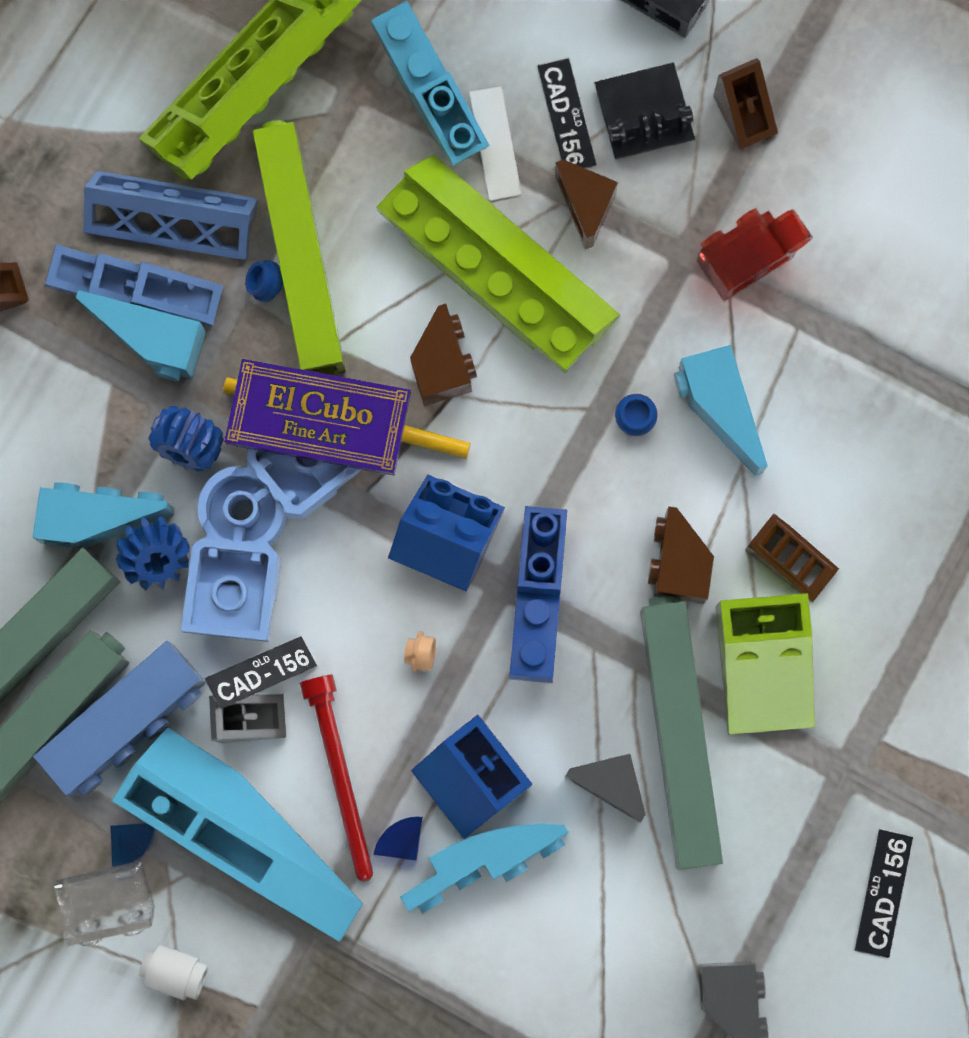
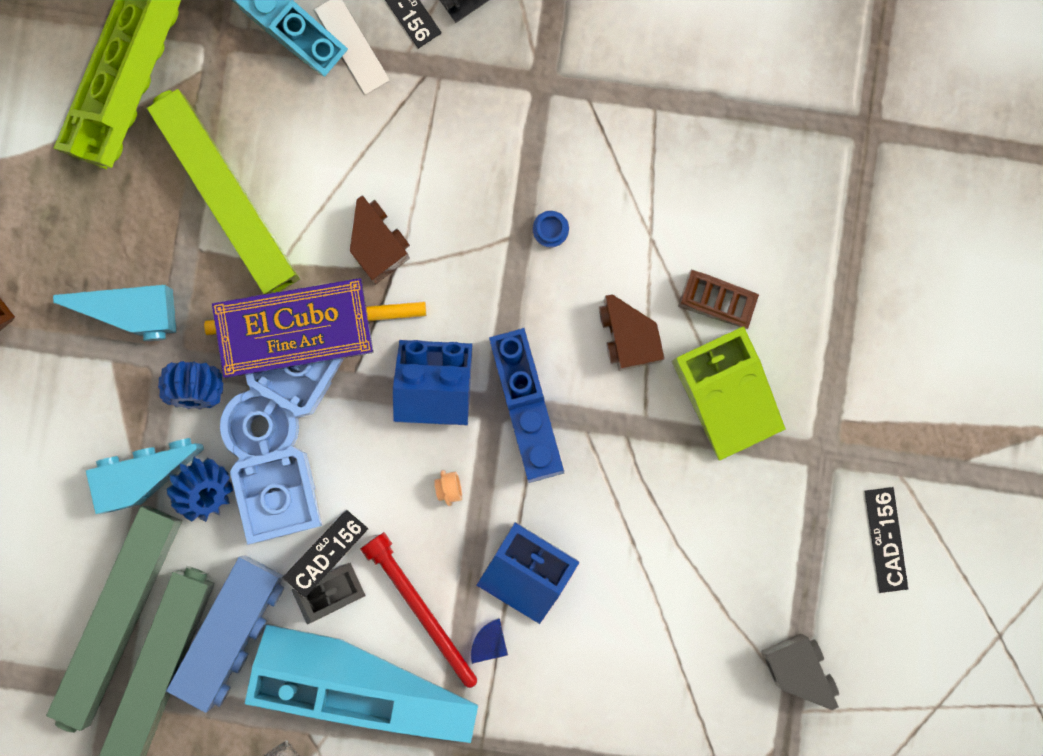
camera: 30 degrees left, 5 degrees up
(130, 842) = (271, 728): clear blue tile -> none
(134, 284) = (98, 272): medium blue slope -> none
(169, 200) = (98, 192): medium blue fence -> none
(264, 280) = (204, 229): blue plate -> none
(497, 263) = (390, 144): lime slope -> none
(499, 850) = (570, 622): medium azure slope -> none
(587, 198) = (444, 63): reddish brown slope -> none
(612, 782) = (642, 534): dark grey slope -> none
(680, 734) = (681, 475): sand green brick -> none
(719, 399) = (614, 192): medium azure slope -> none
(751, 250) = (594, 58): clear red hinge -> none

